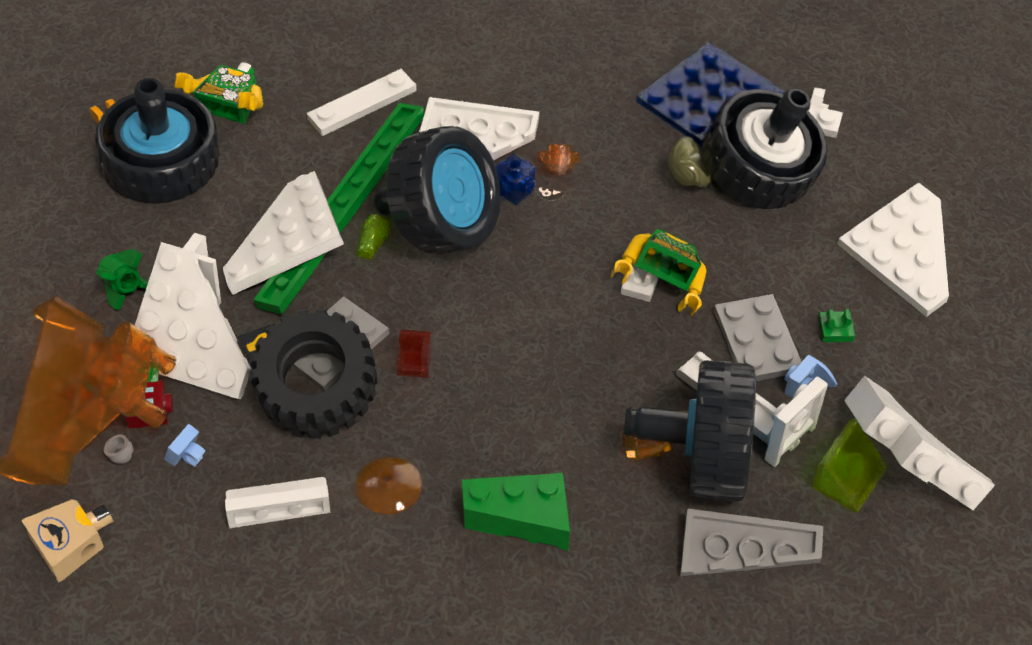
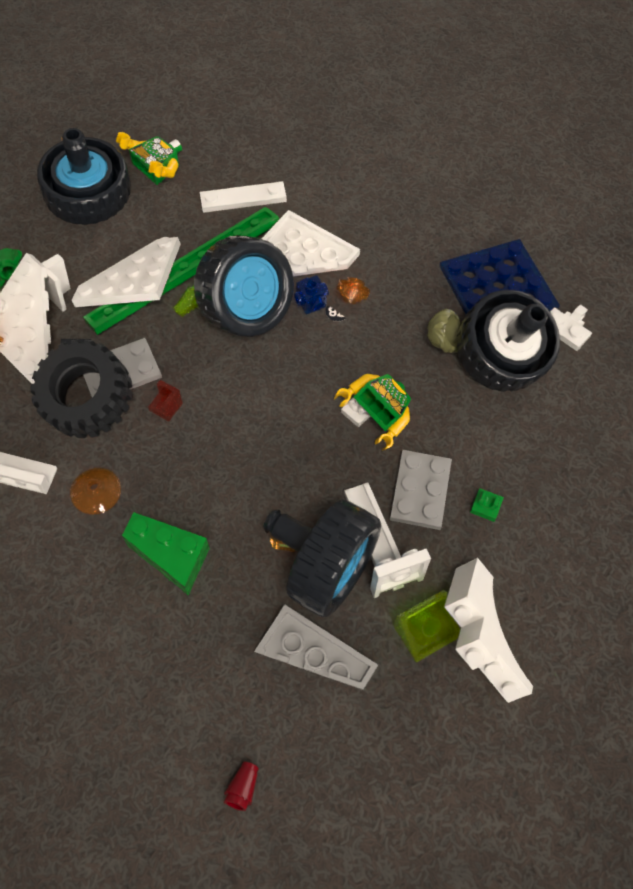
camera: 25 degrees right, 10 degrees up
(805, 373) = (434, 534): light blue plate -> none
(905, 248) = (579, 462): white plate -> none

